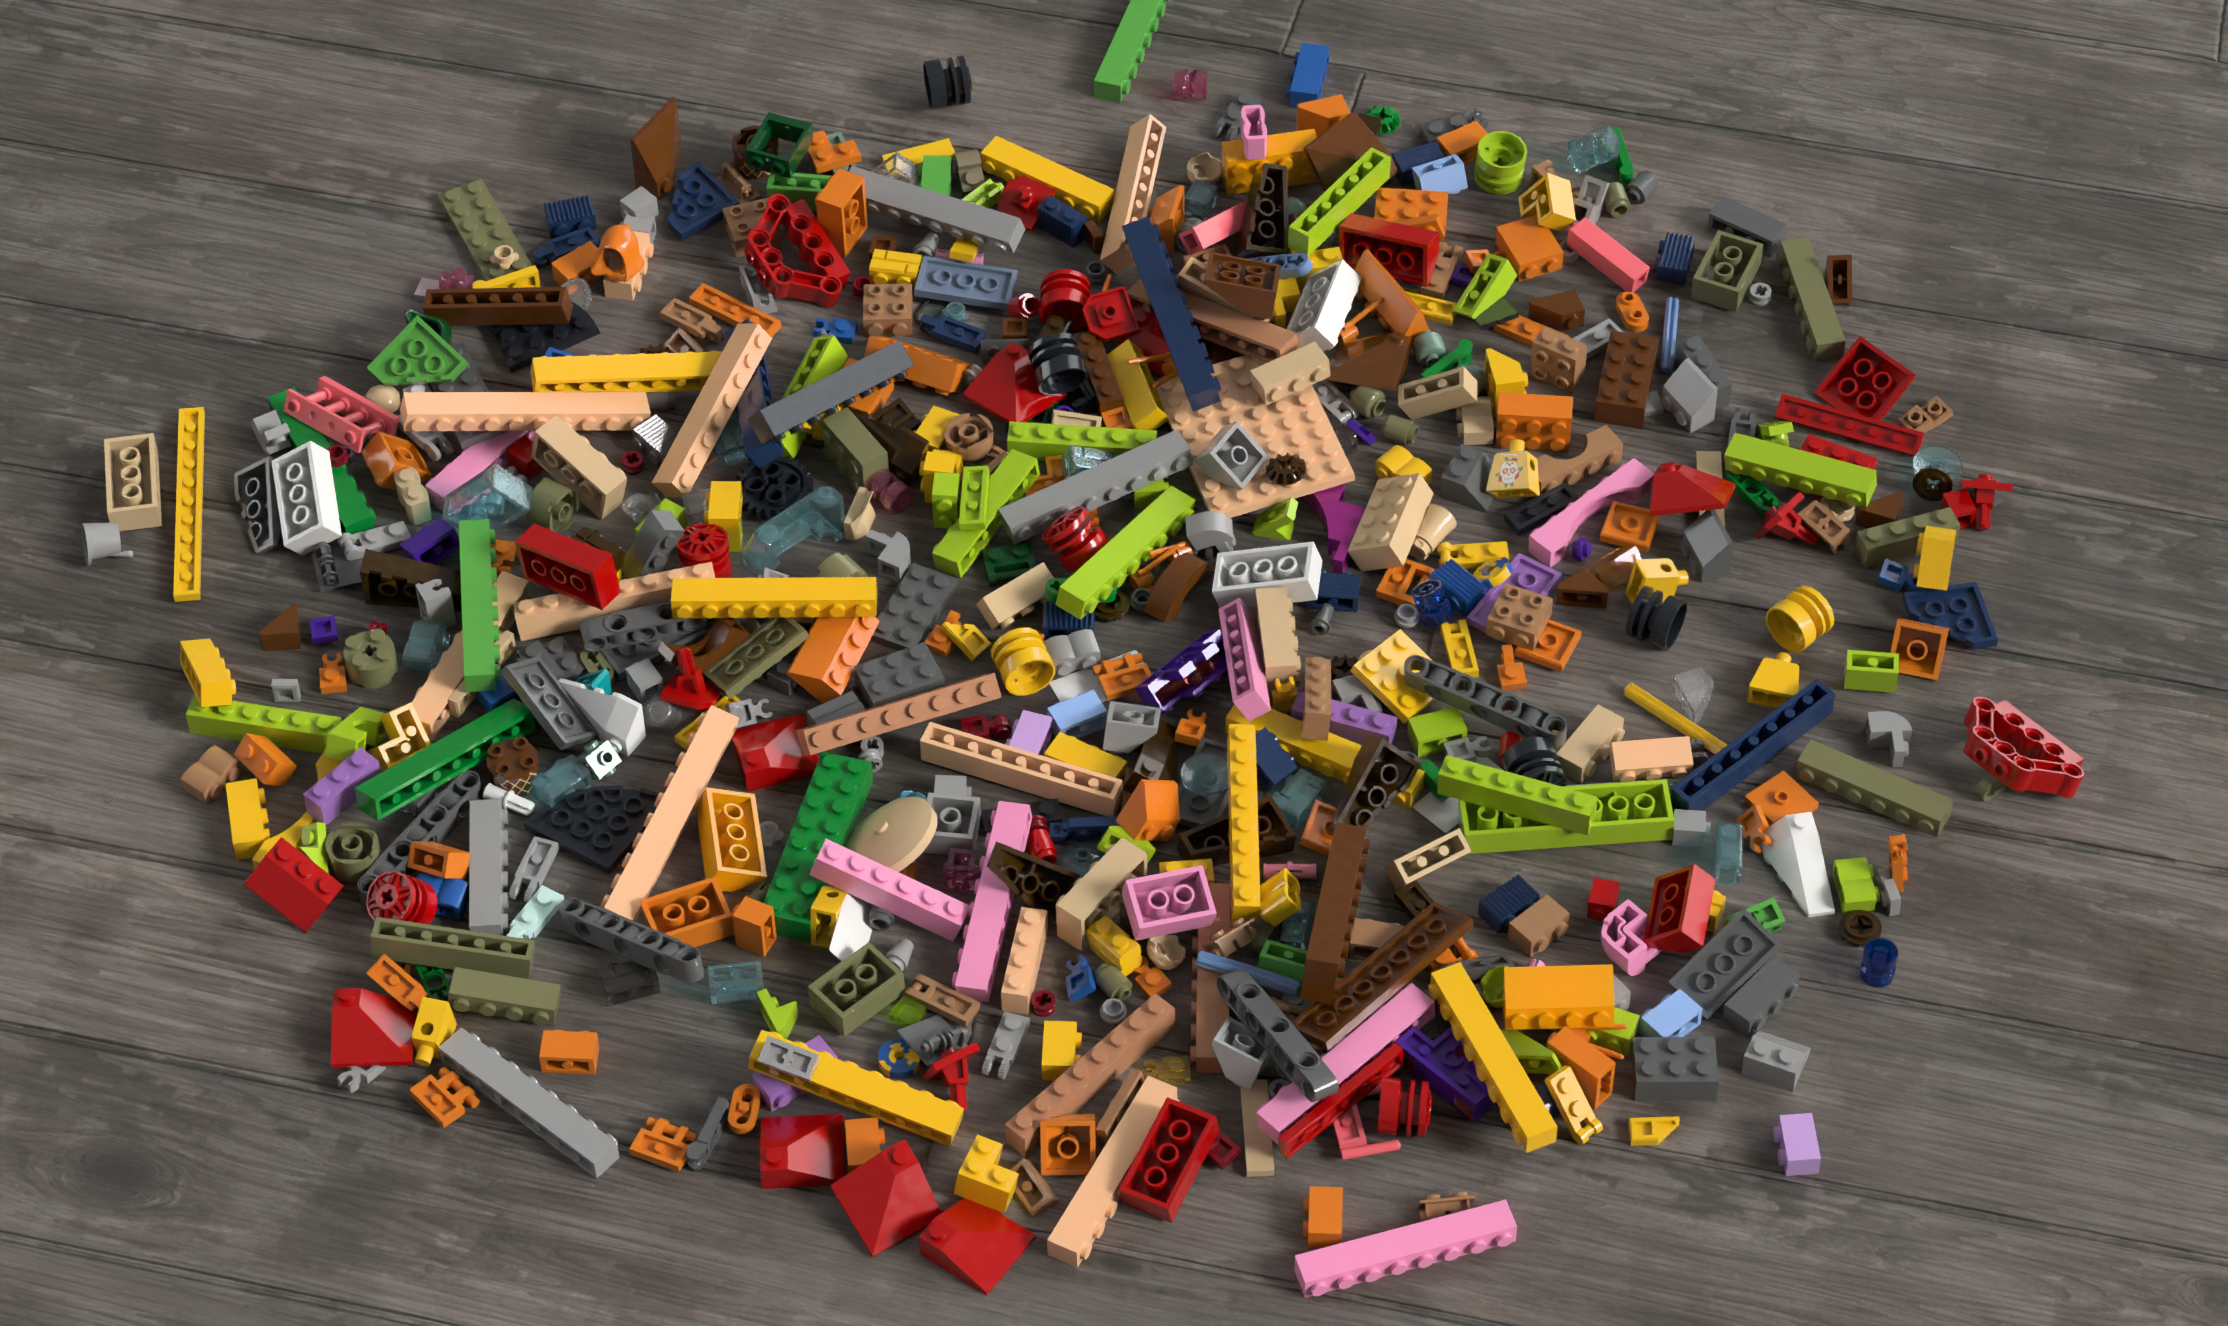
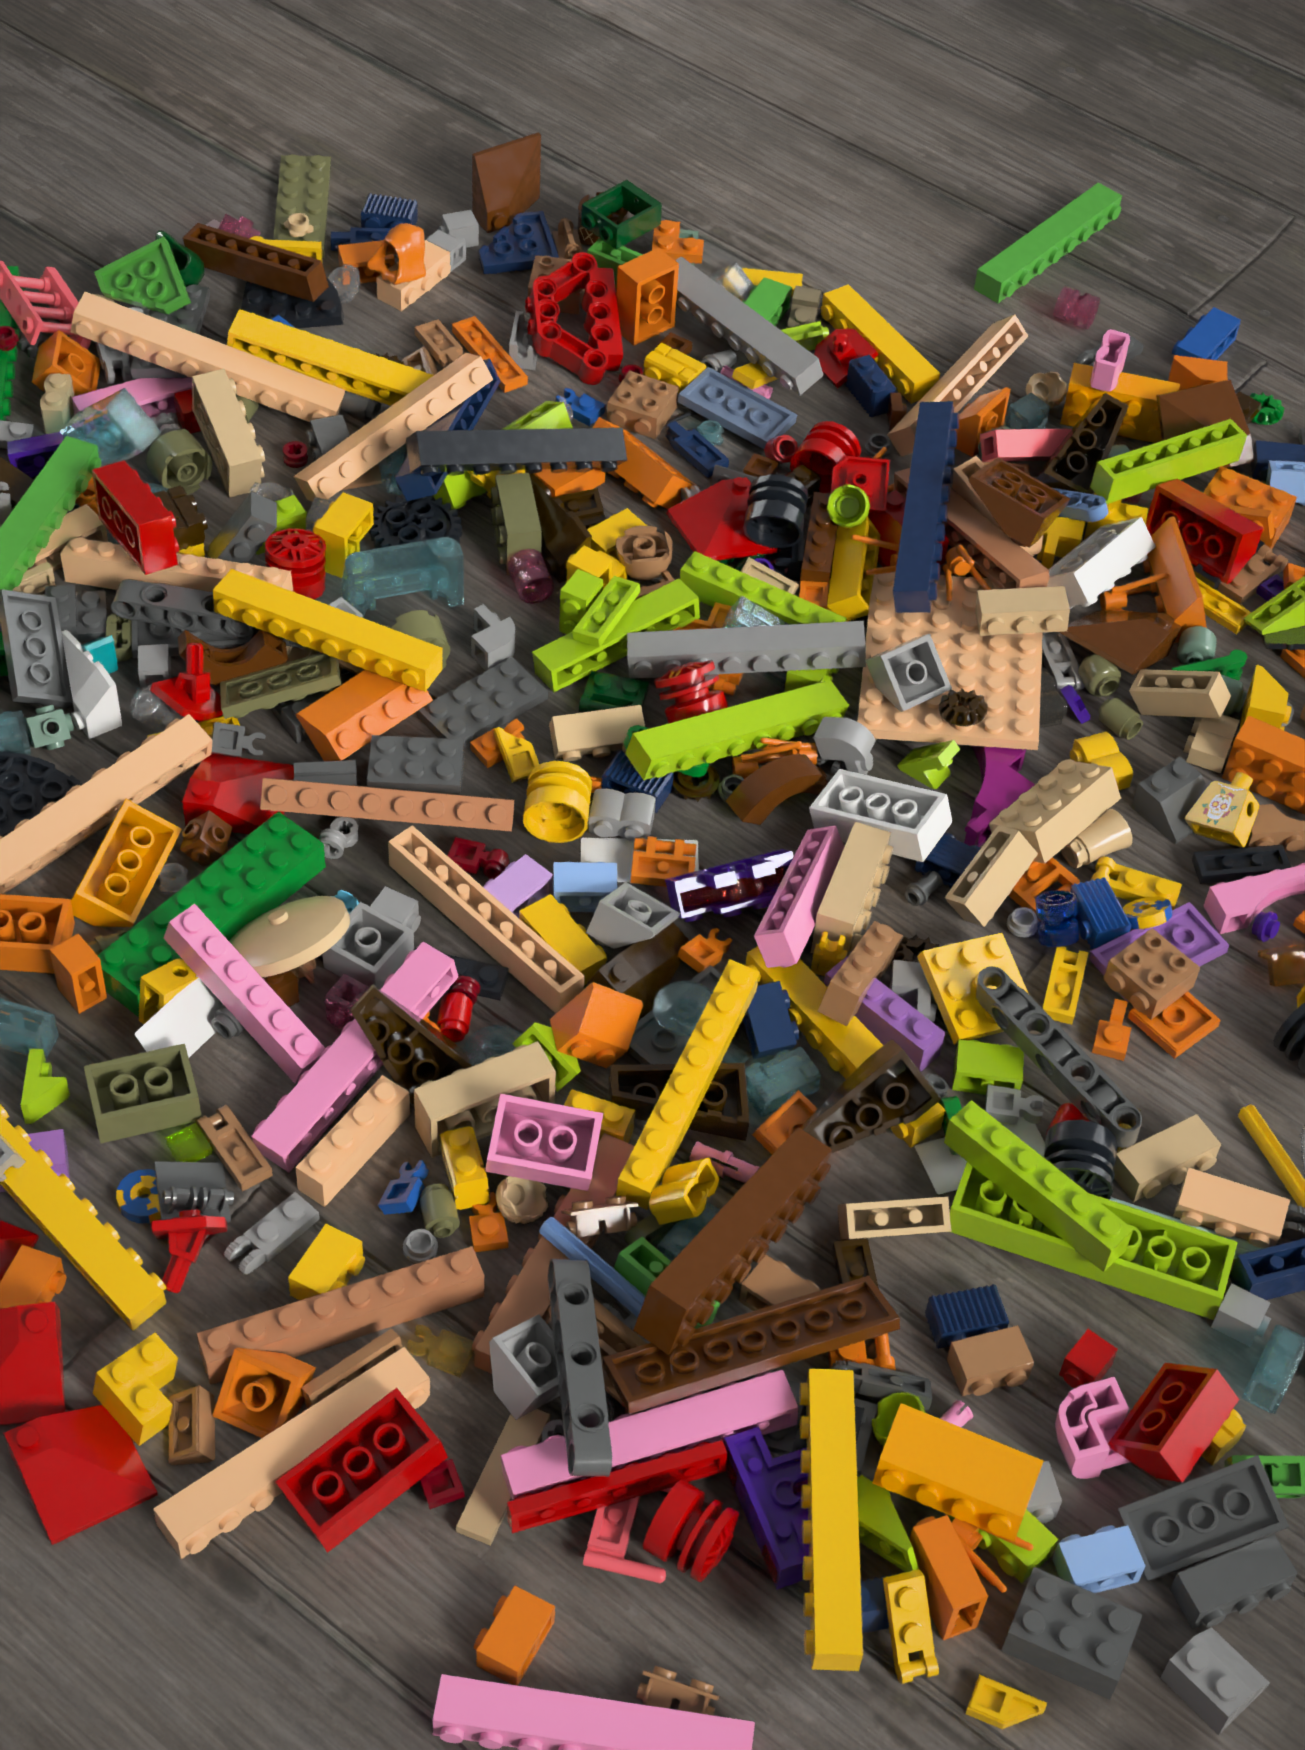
camera: 20 degrees right, 0 degrees up
(777, 794) = (206, 838): none -> reddish brown brick
(859, 515) = (485, 588): tan slope -> none
(901, 954) = (216, 1077): light grey cone -> none
(947, 82) = (828, 221): black wheel -> none
(1049, 1008) = (346, 1192): dark red bush -> none
(1081, 828) = (509, 1012): dark blue hinge -> none
(1111, 337) = (848, 506): none -> lime hair
(1222, 351) = (960, 563): none -> orange plant
(1370, 590) = (991, 875): none -> tan brick
(1582, 591) = (1244, 974): reddish brown slope -> none

